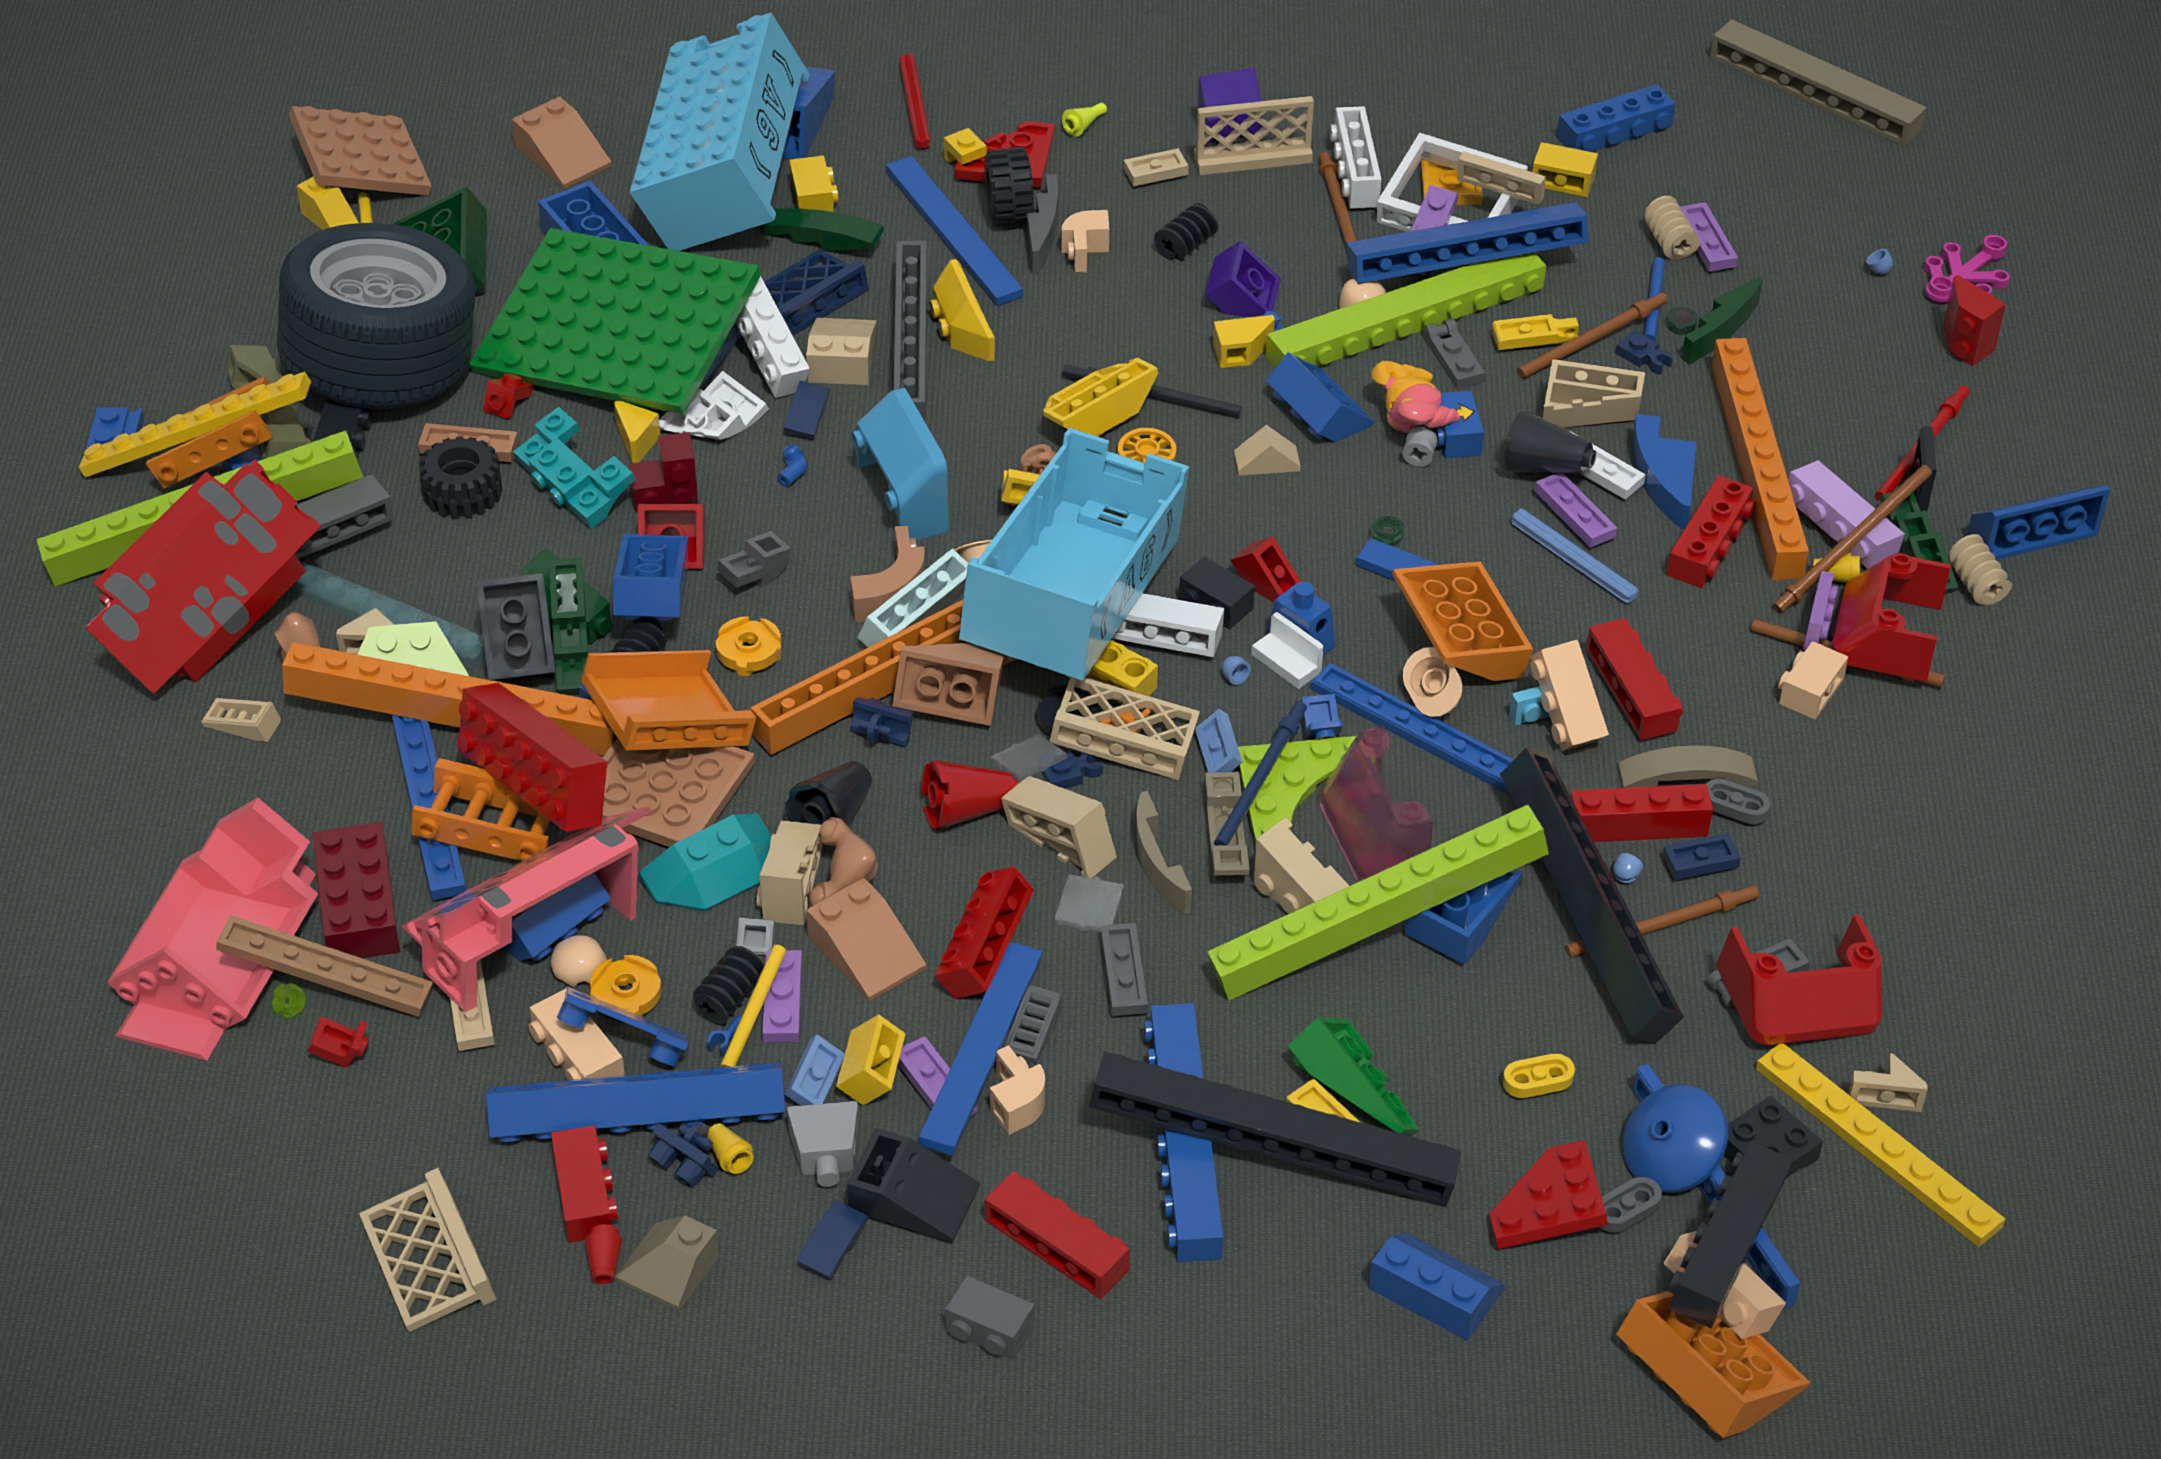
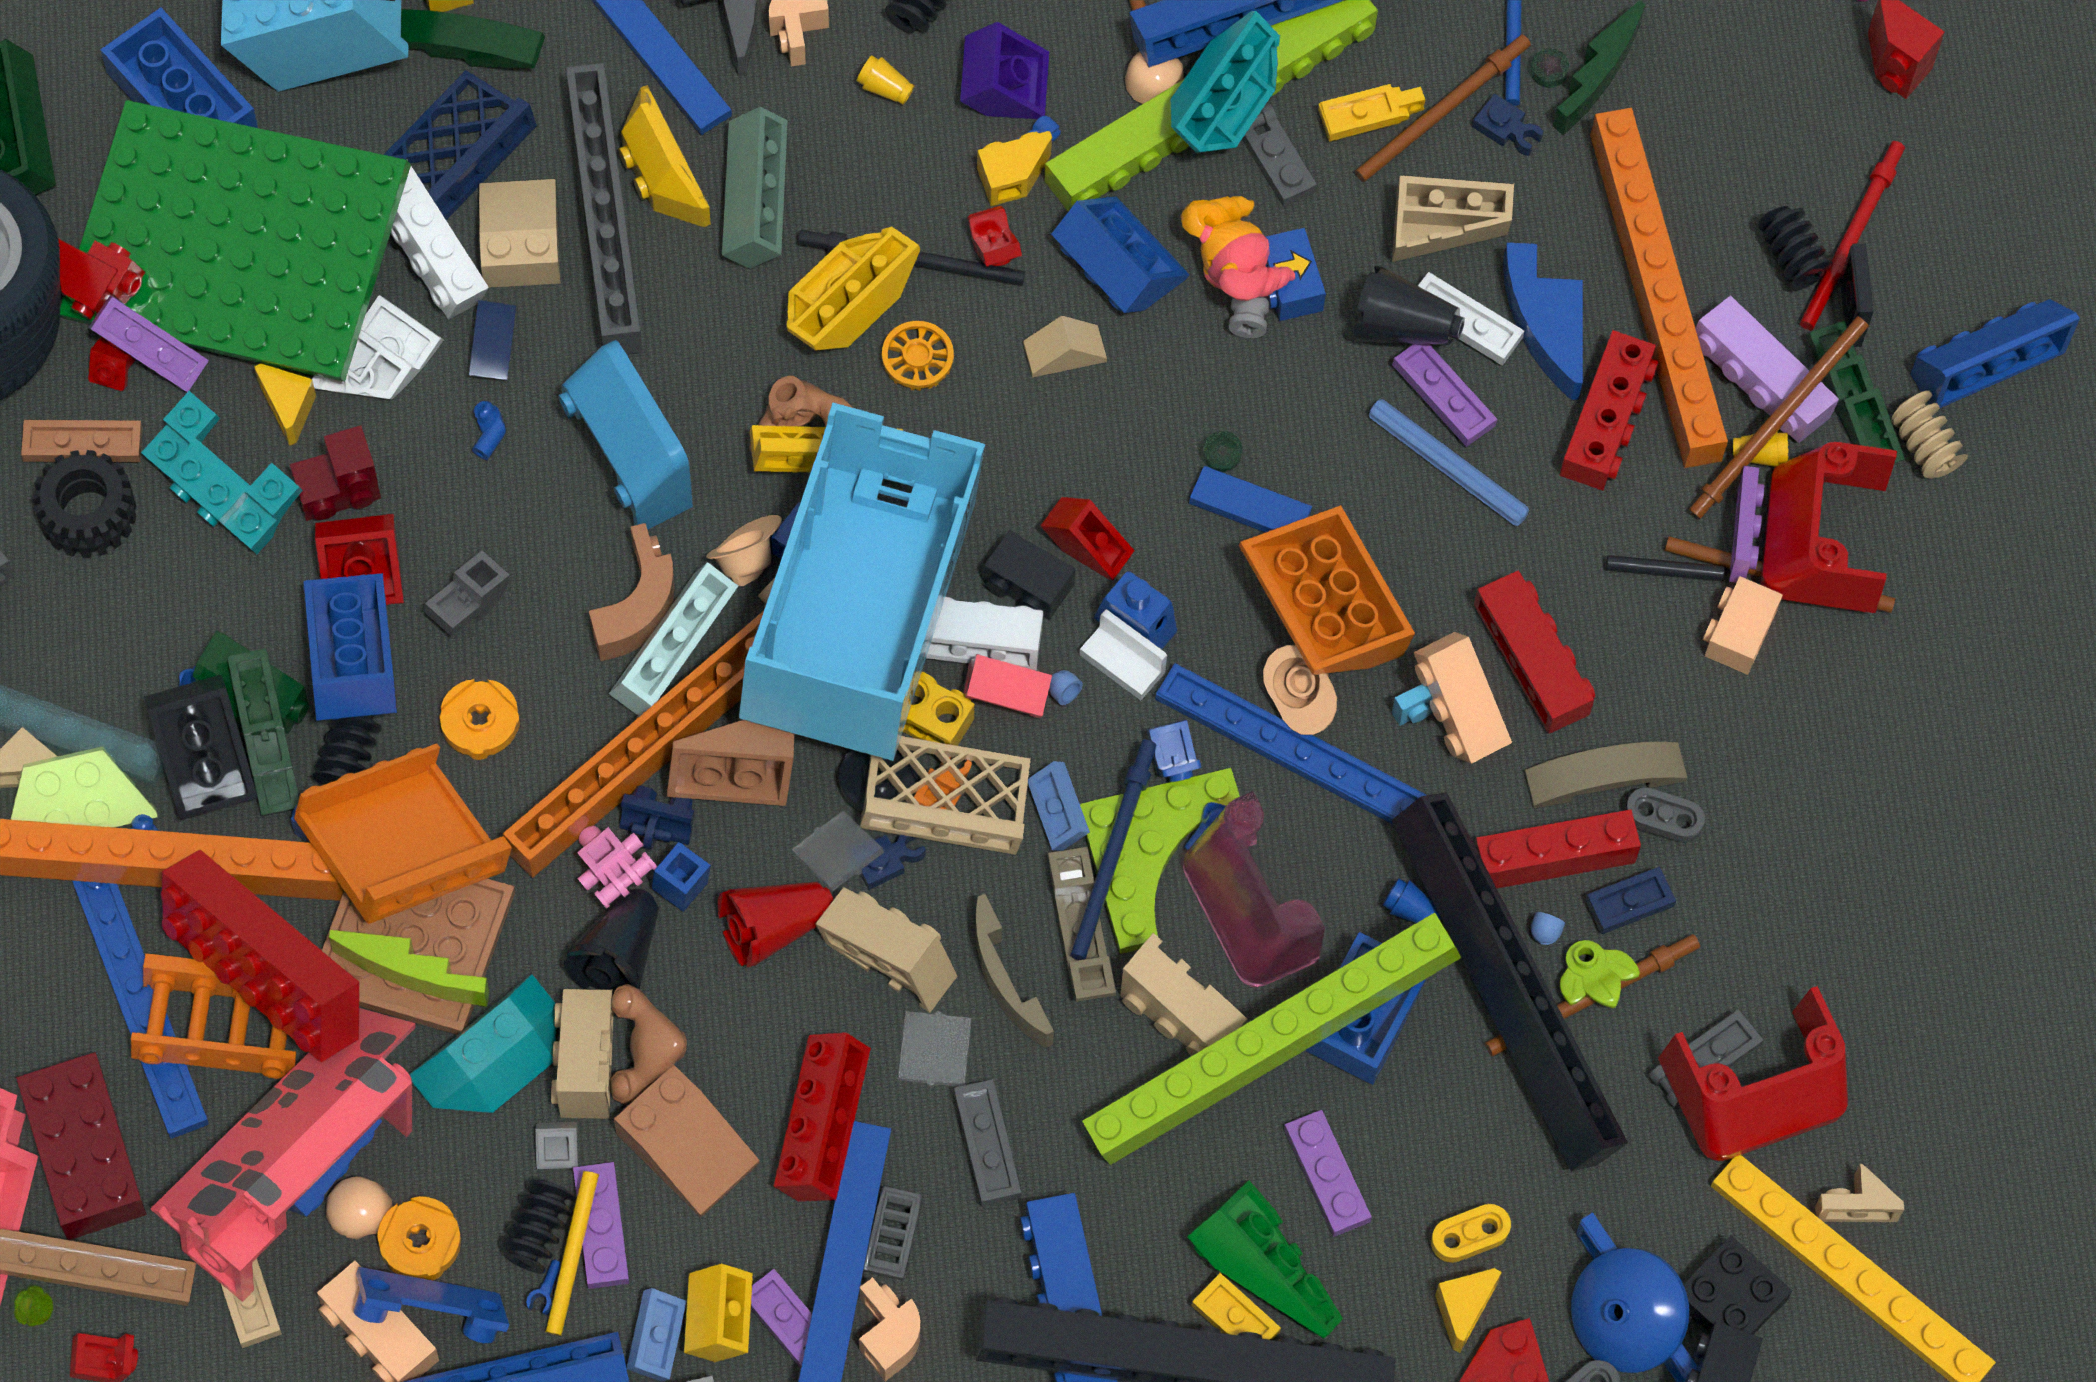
camera: 10 degrees left, 20 degrees up
(497, 334) = (84, 280): none -> red slope
(521, 327) = (129, 275): none -> red bracket
(532, 378) = (148, 343): none -> medium lavender plate
(667, 797) = (396, 962): none -> lime slope
(839, 741) = (611, 863): none -> bright pink piece
(894, 757) = (681, 876): none -> blue brick
(1032, 332) = (754, 187): none -> sand green brick
(1147, 281) = (884, 80): none -> yellow cone
(1188, 656) = (1007, 685): none -> coral hinge
(1218, 379) = (993, 237): none -> red bracket
(1417, 1023) = (1327, 1173): none -> medium lavender plate
(1422, 291) = (1227, 86): none -> teal wedge
(1529, 1122) = (1463, 1302): none -> yellow slope
(1666, 902) = (1596, 978): none -> lime plate
(1750, 640) = (1664, 568): none -> black bar
(1874, 440) = (1793, 247): none -> black piece

